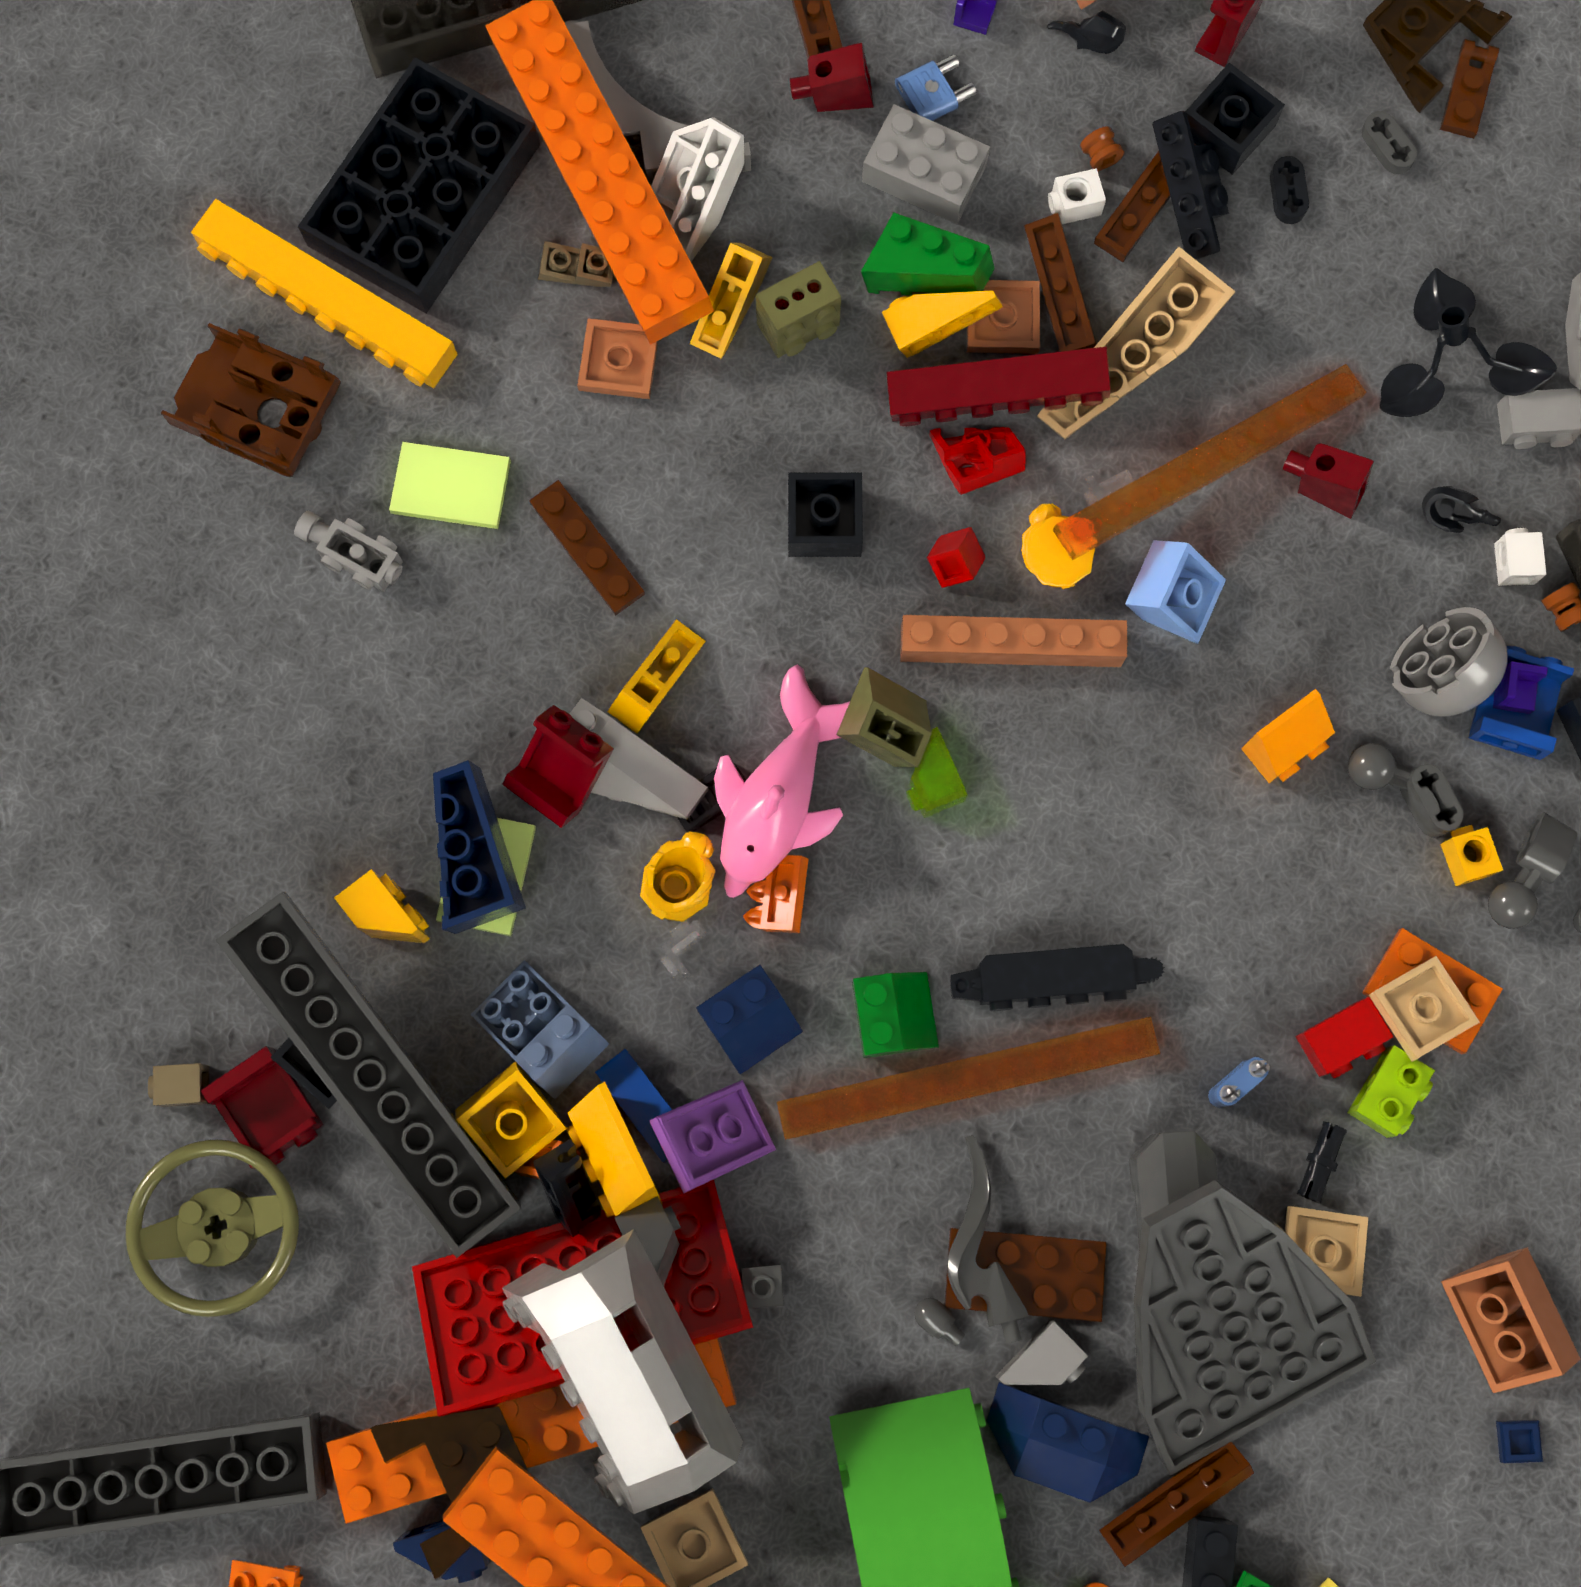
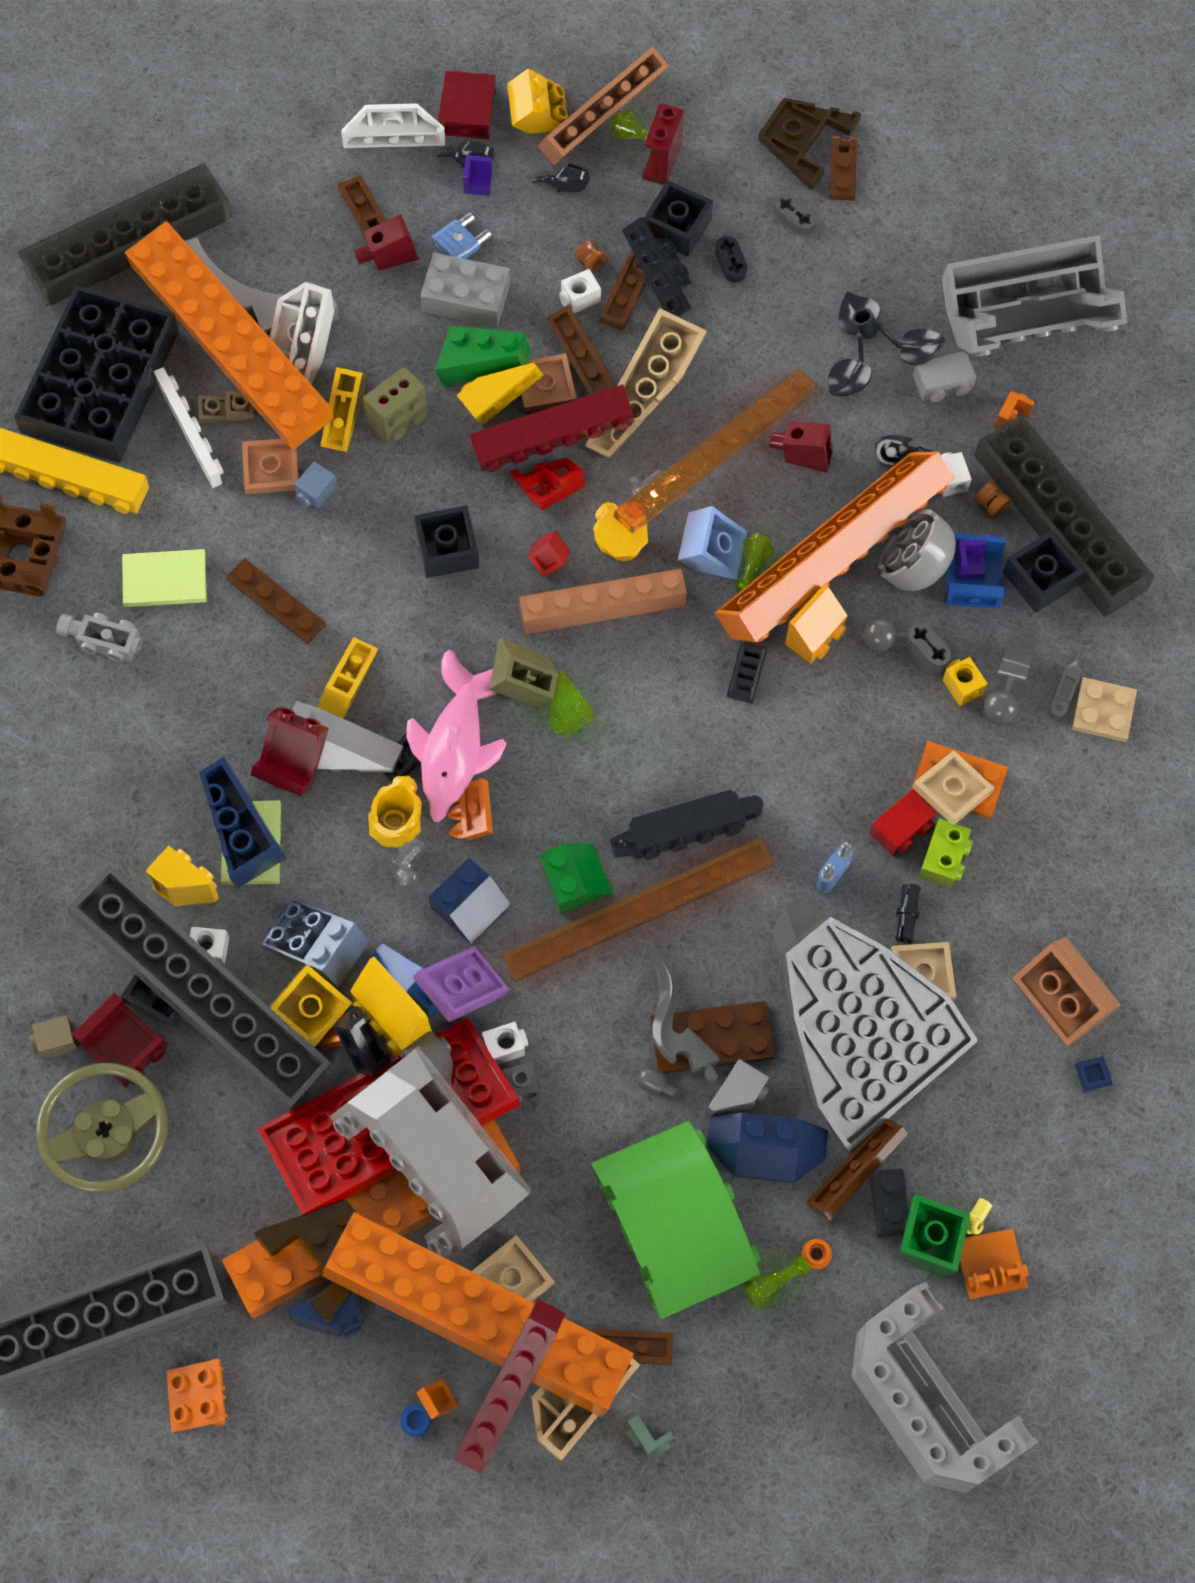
camera: 15 degrees left, 10 degrees down
(415, 1008) = (216, 936): none -> white brick
(525, 283) = (189, 427): none -> white plate
(670, 400) = (315, 486): none -> sand blue brick
(736, 1230) = (494, 1036): none -> white brick
(1196, 750) = (755, 651): none -> black slope
(1231, 613) = (756, 551): none -> clear neon green piece
(1341, 631) = (834, 546): none -> brick

